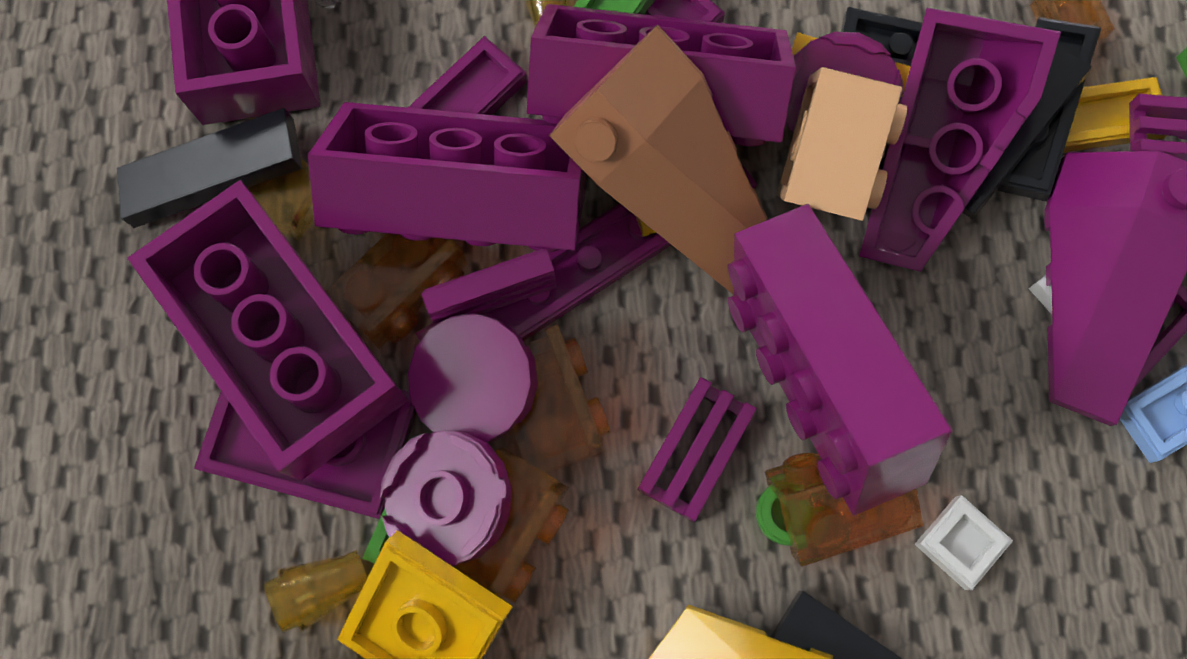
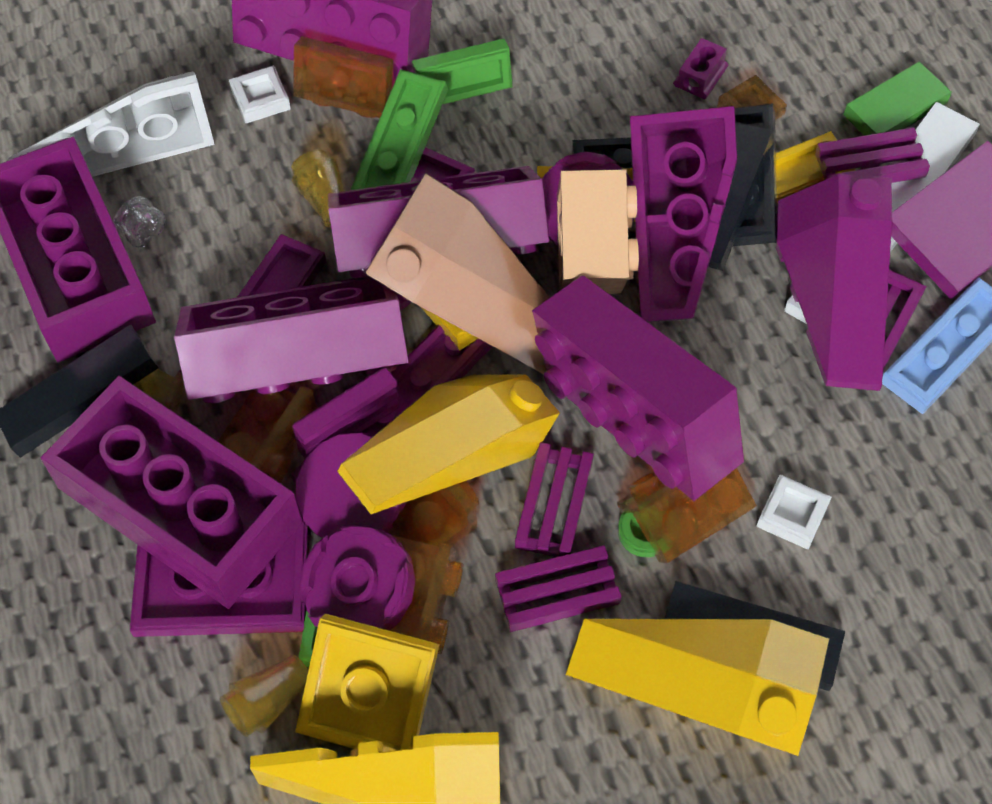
camera: 15 degrees left, 15 degrees down
(591, 352) = (449, 438): none -> yellow wedge
(725, 556) = (551, 568): none -> magenta tile

